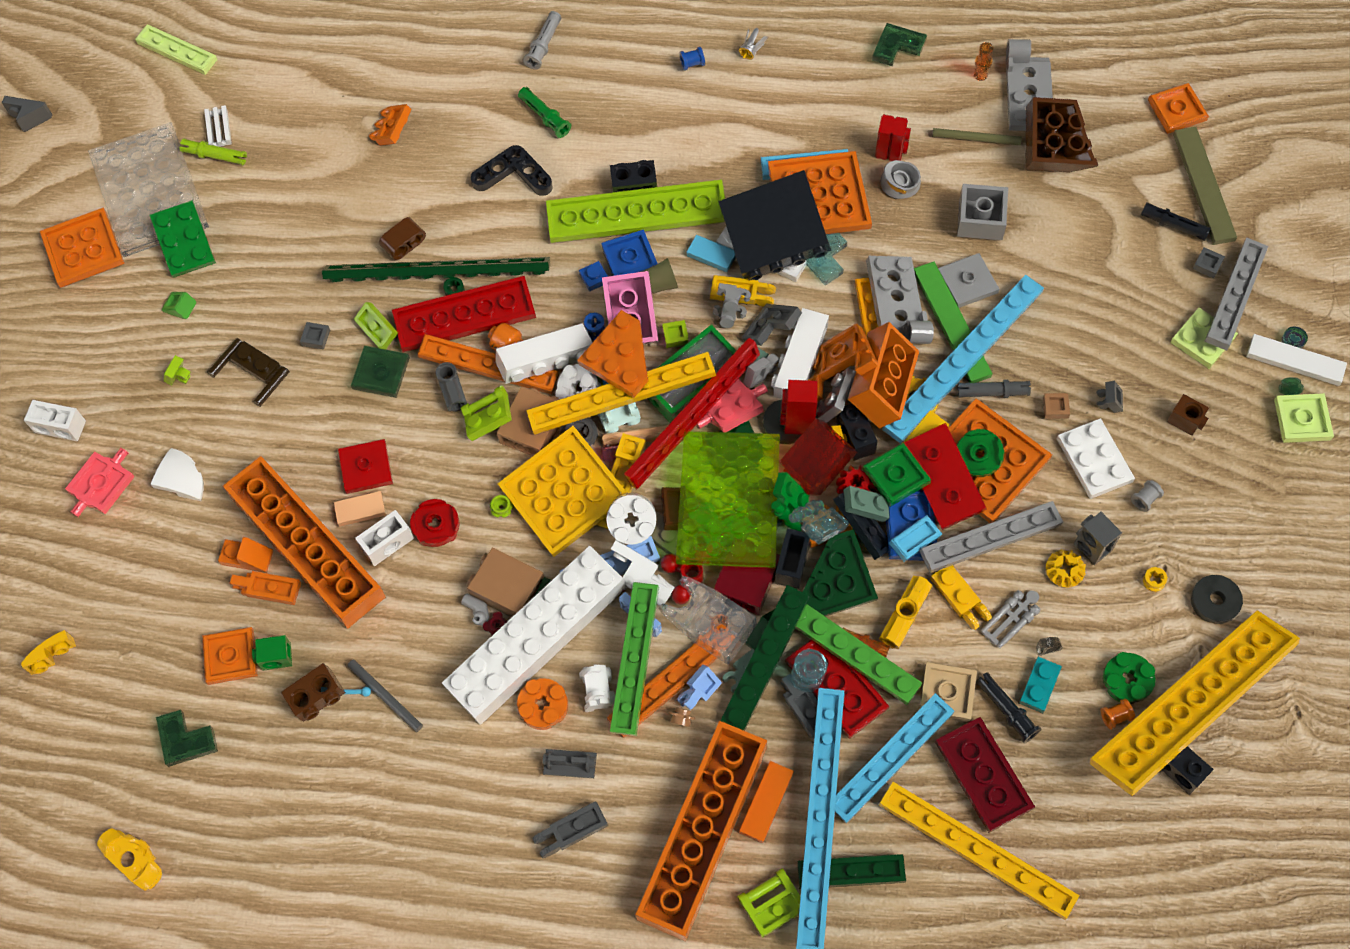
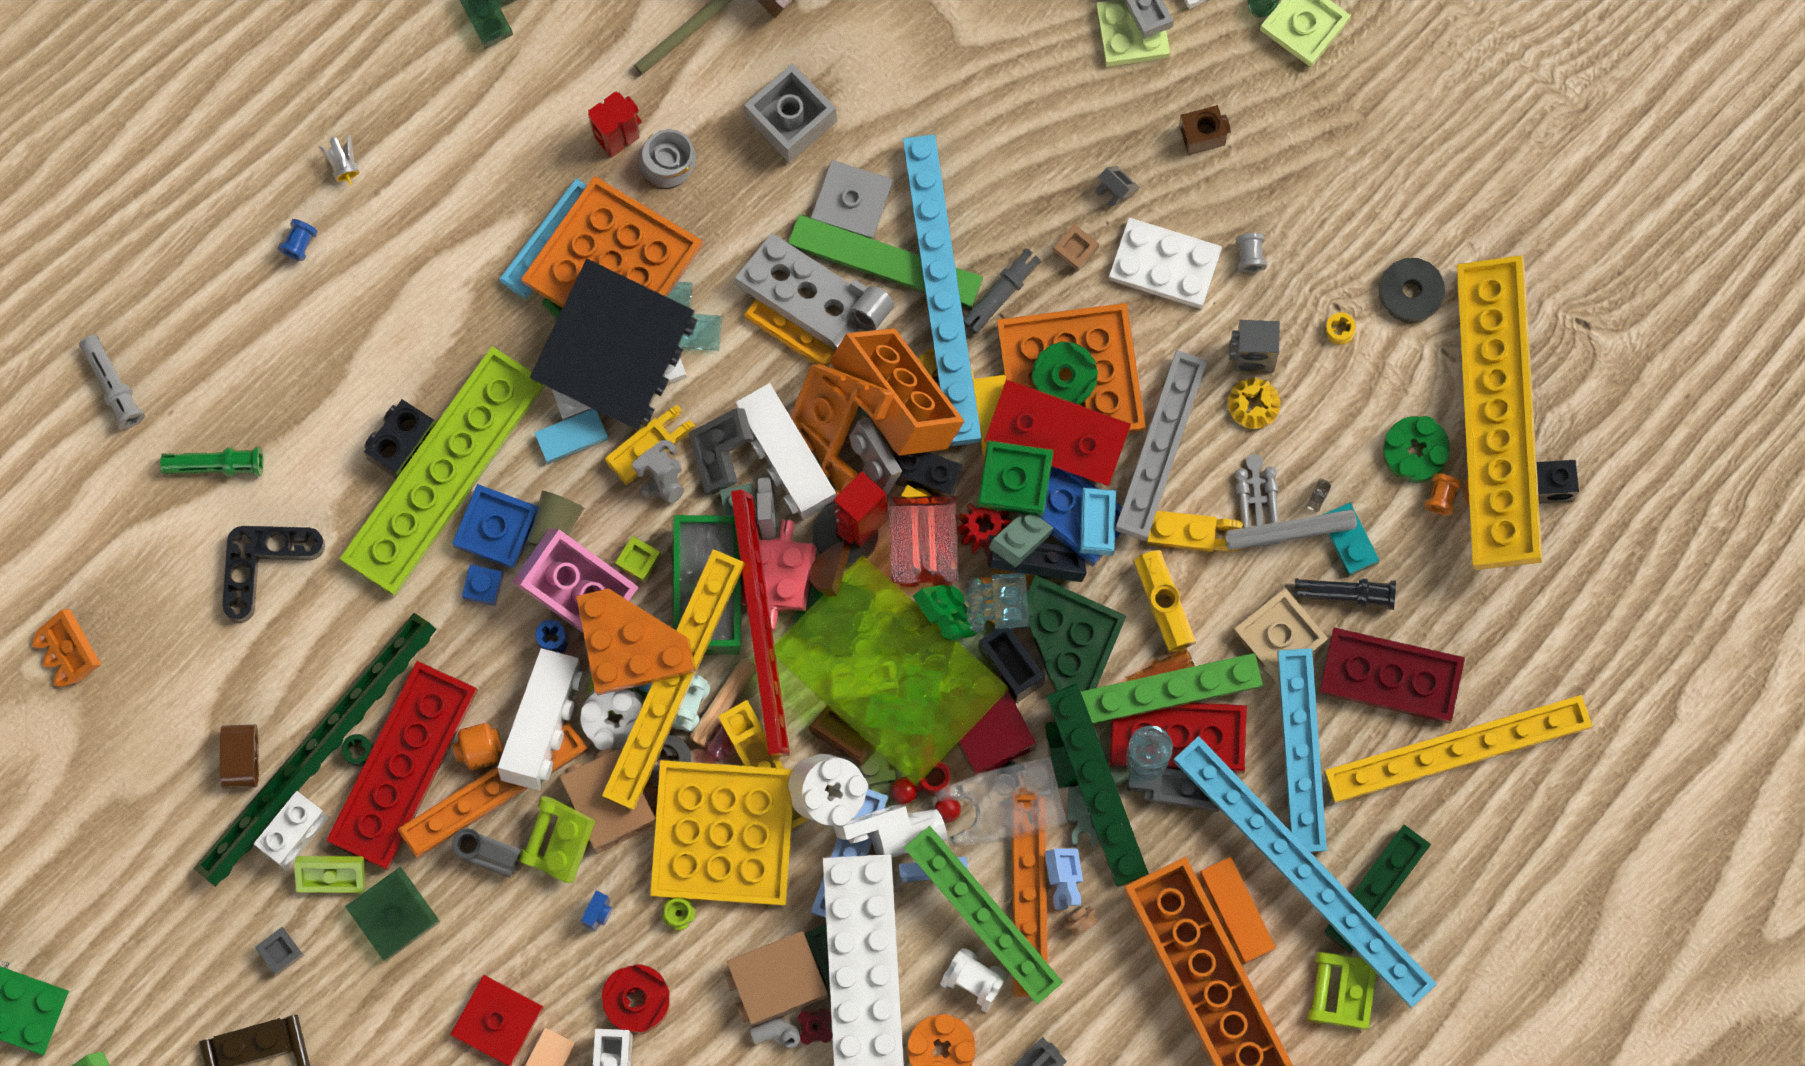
camera: 50 degrees left, 10 degrees up
(383, 289) = (291, 830): none -> white brick
(465, 464) = (597, 911): none -> blue plate
(757, 424) = (829, 569): none -> reddish brown tile
(1012, 644) = (1290, 529): none -> light grey axle

